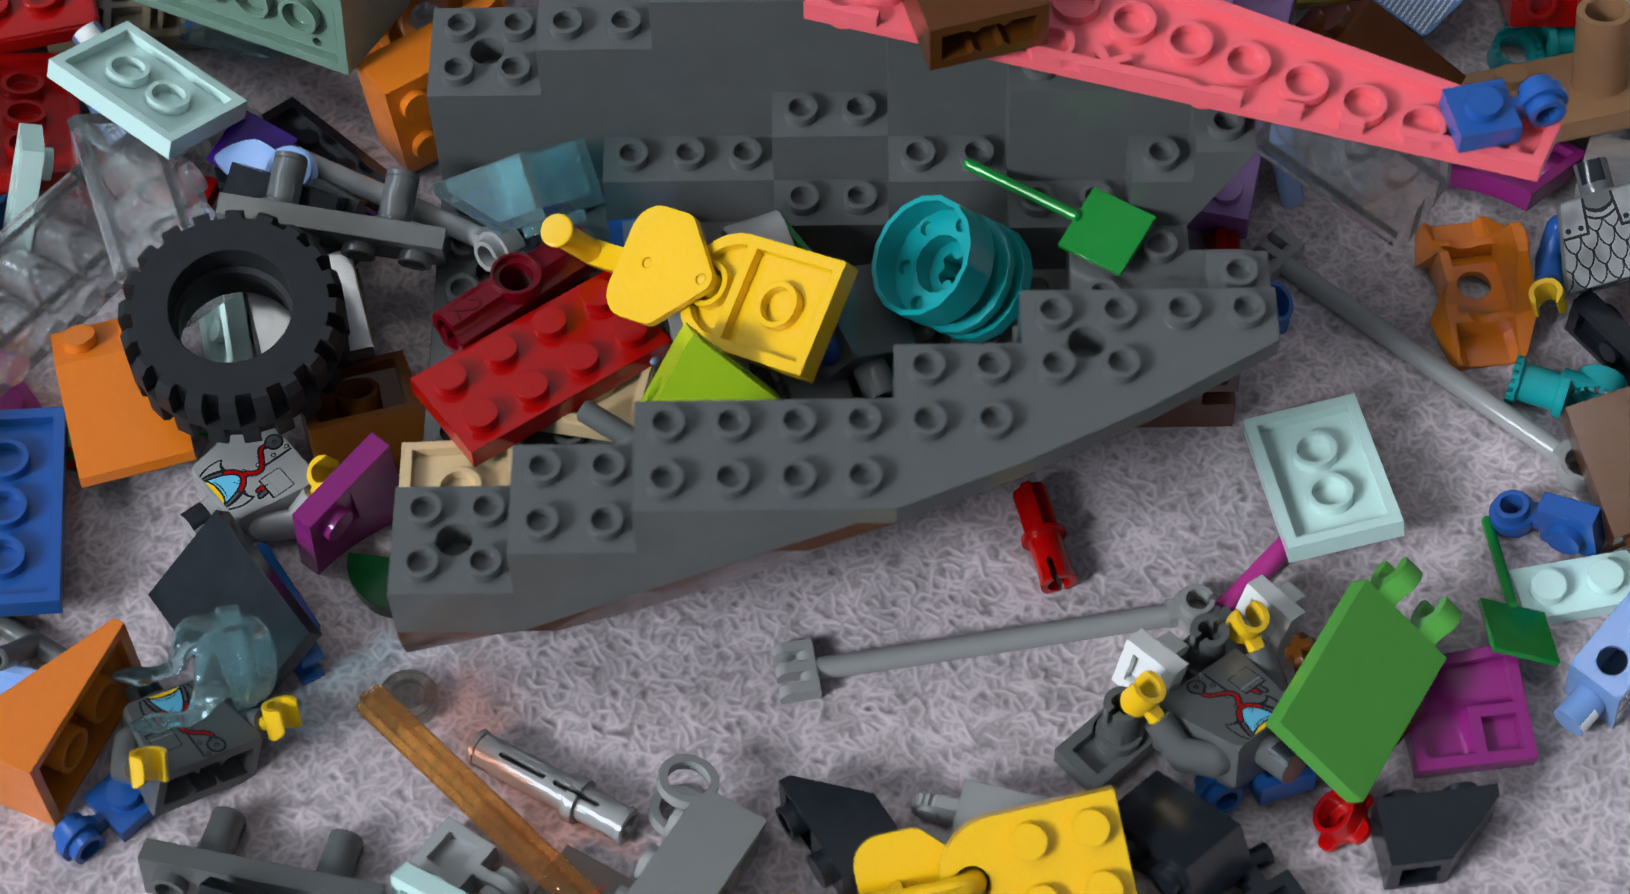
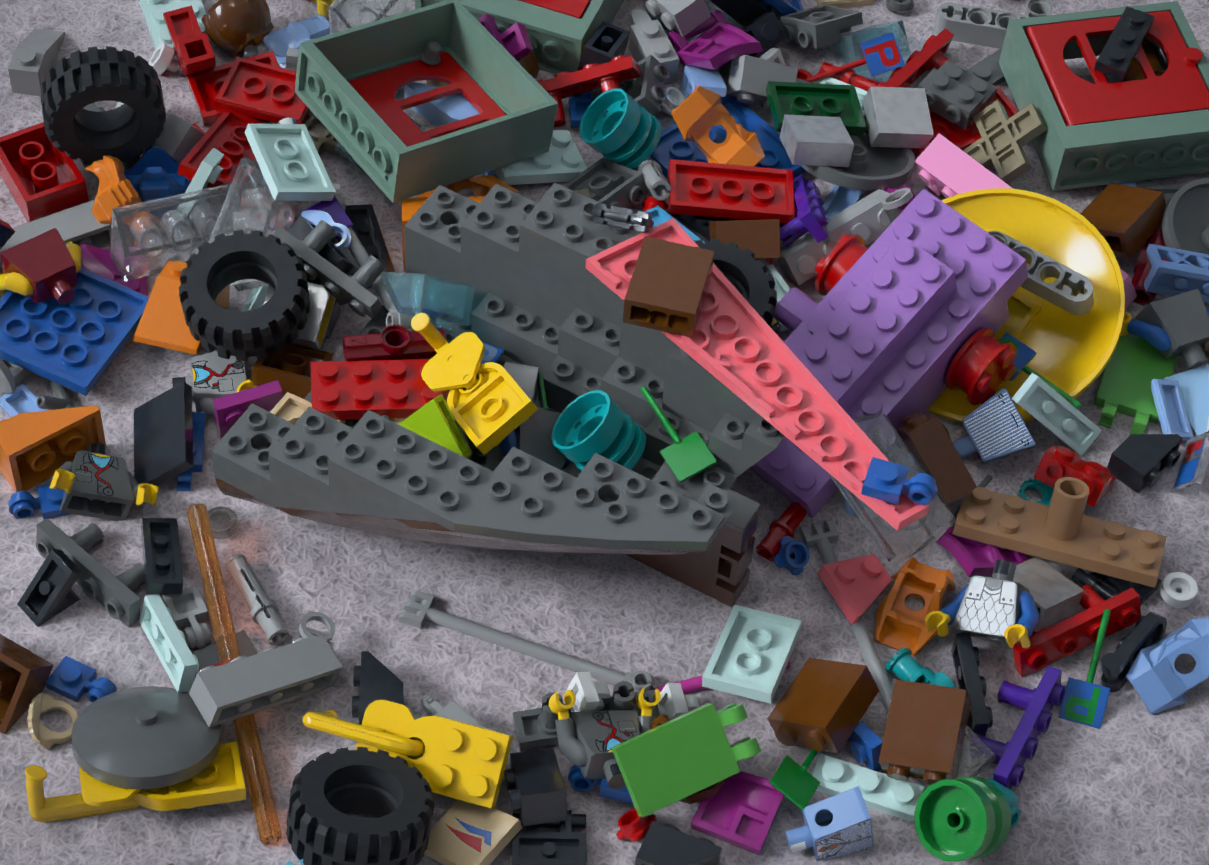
camera: 25 degrees right, 5 degrees down
(232, 661) = (135, 450): clear light blue hair -> none
(365, 800) = (161, 556): none -> black plate
(1043, 536) = (588, 609): red axle -> none
(1385, 302) = (855, 583): none -> coral wing
(1476, 498) = (823, 705): none -> reddish brown brick

